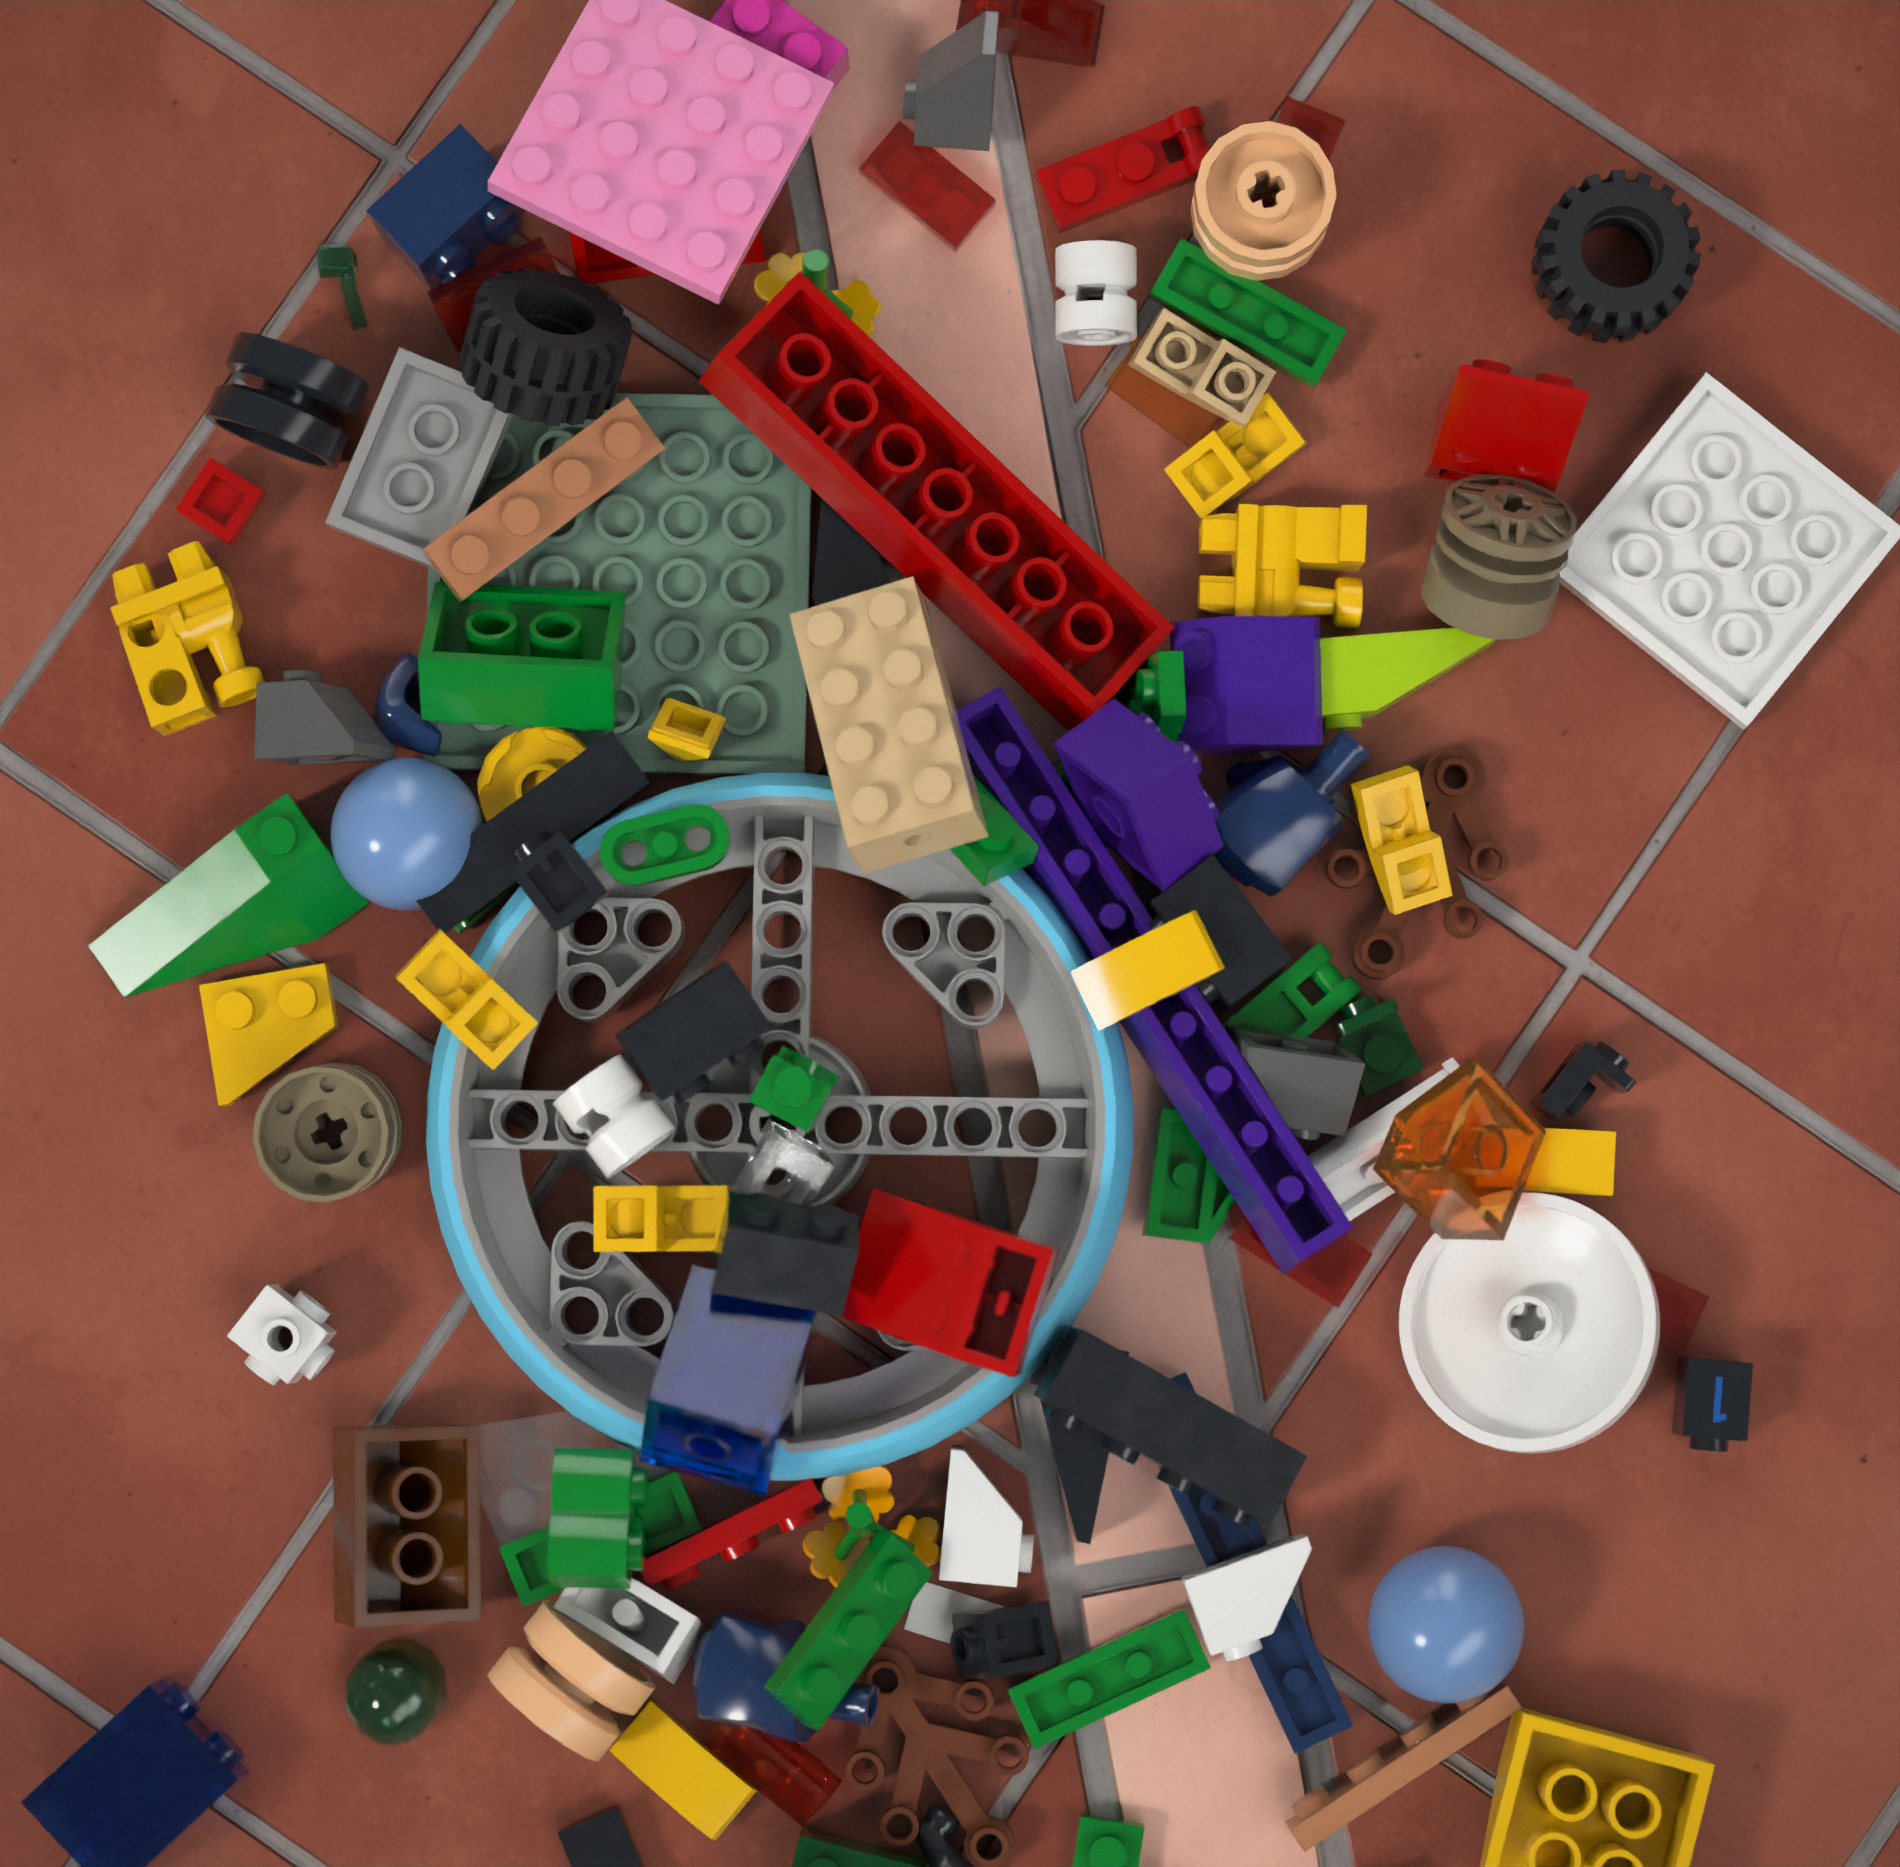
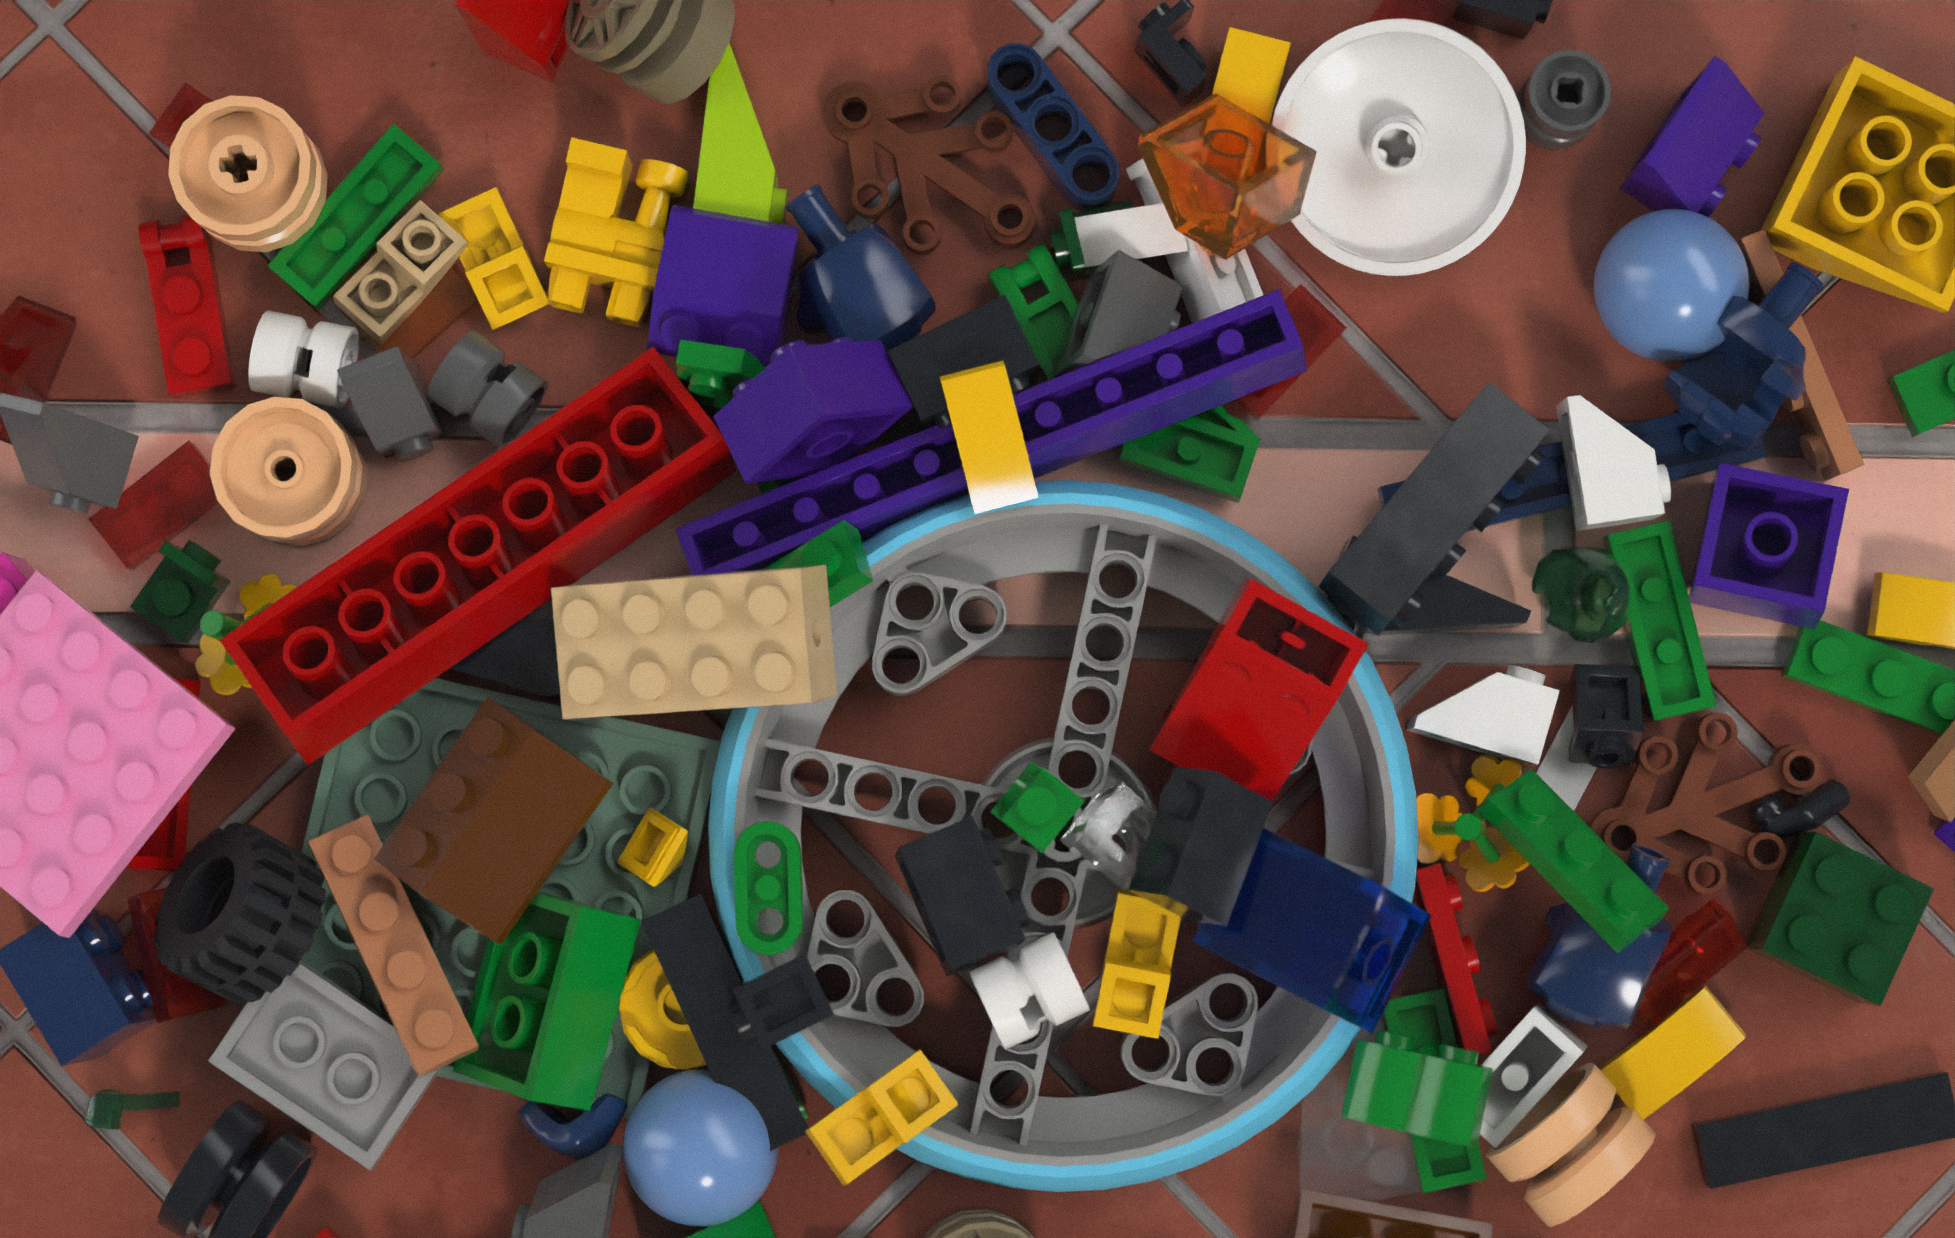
camera: 85 degrees left, 0 degrees up
(680, 569) = (493, 821): none -> reddish brown slope
(849, 224) = (181, 589): none -> dark green bracket
(988, 264) = (292, 435): none -> light nougat wheel
(1068, 389) = (393, 404): none -> dark grey slope
(1103, 474) = (490, 391): none -> dark grey wheel
(1122, 1596) = (1584, 592): none -> clear green hair
(1203, 1769) = (1768, 545): none -> dark purple brick
(1362, 1713) = (1758, 365): none -> dark blue piece
(1386, 1072) = (1135, 231): none -> white sticker
(1399, 839) = (906, 175): yellow slope -> none
(1505, 960) = (1049, 98): none -> dark blue beam
(1594, 1625) = (1697, 144): none -> dark purple slope
(1613, 1480) = (1564, 99): none -> dark grey wheel

